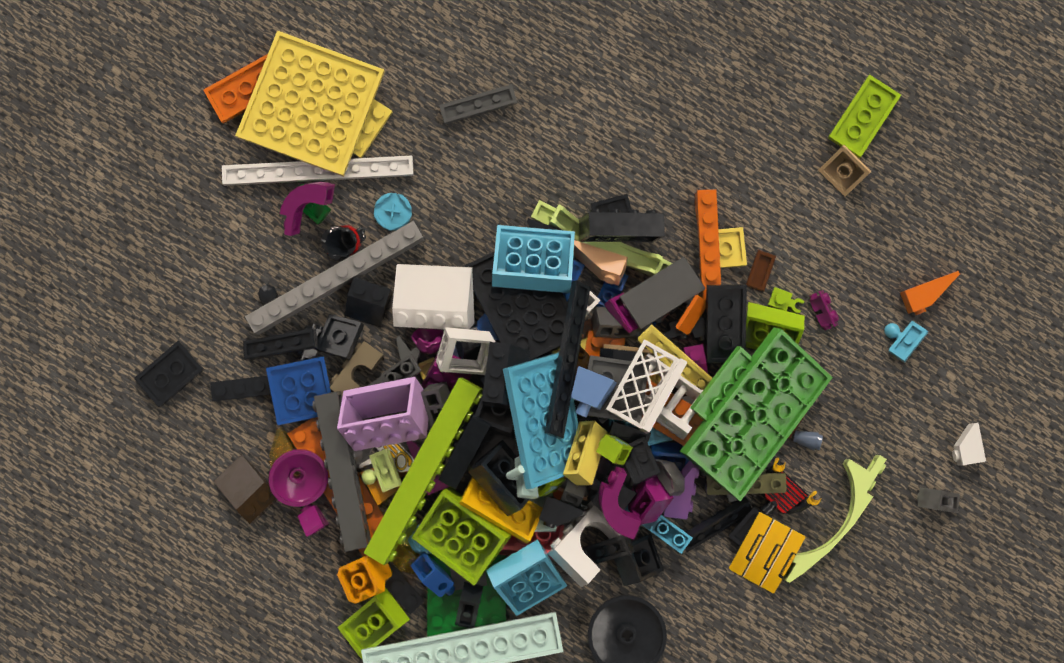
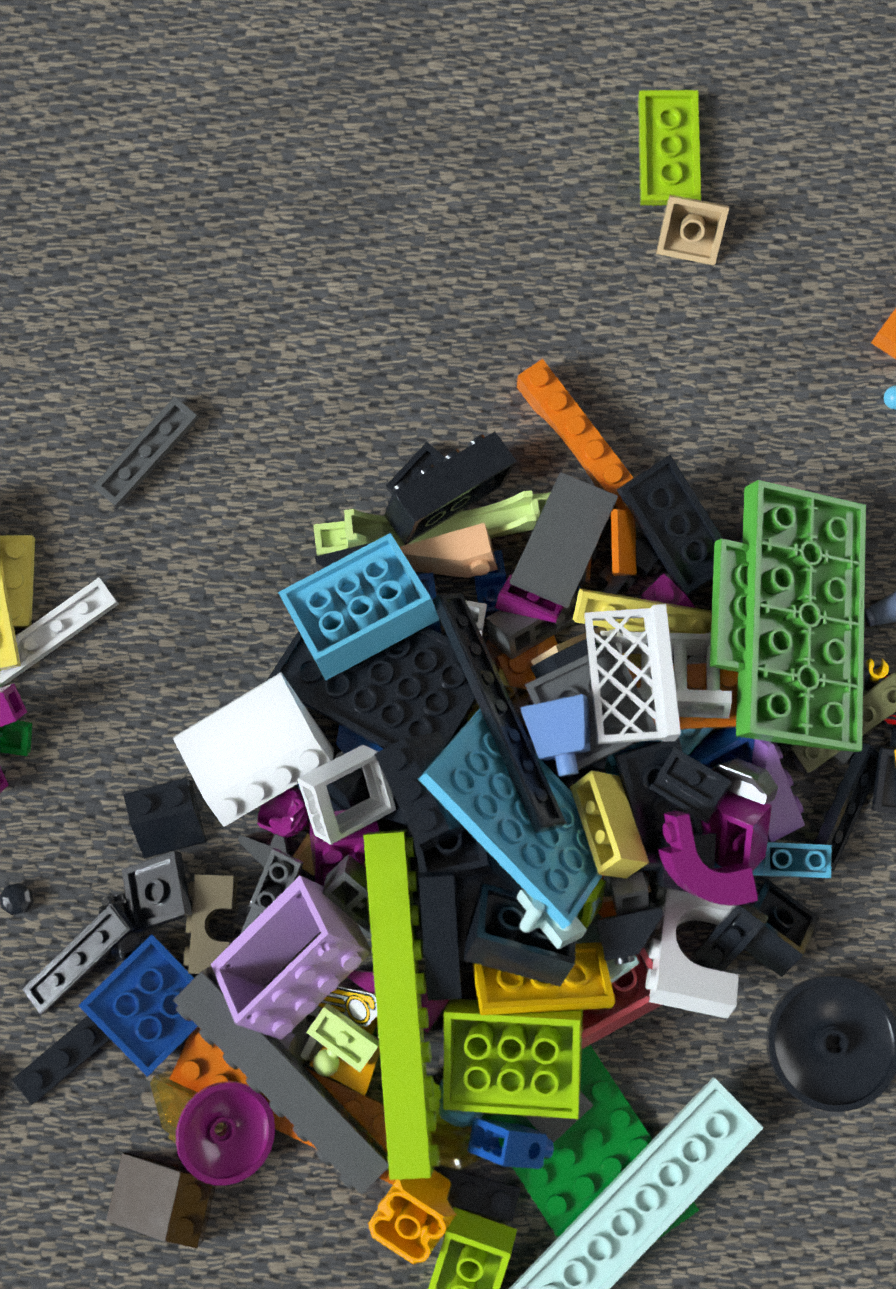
camera: 30 degrees left, 5 degrees down
(312, 519) = (284, 1180): magenta slope -> none
(334, 278) = (96, 817): light grey brick -> none
(342, 241) = (75, 756): black hair -> none
(392, 211) = (121, 671): medium azure tile -> none
(469, 605) = (588, 1151): black slope -> none
(526, 577) = (642, 1057): medium azure slope -> none
(614, 449) = (645, 792): lime brick -> none
(732, 248) = (615, 422): light yellow plate -> none
(760, 270) = (671, 429): reddish brown tile -> none
(763, 319) = (723, 489): lime slope -> none
(782, 300) = (727, 450): lime plate -> none
(822, 303) = (780, 419): magenta hinge -> none

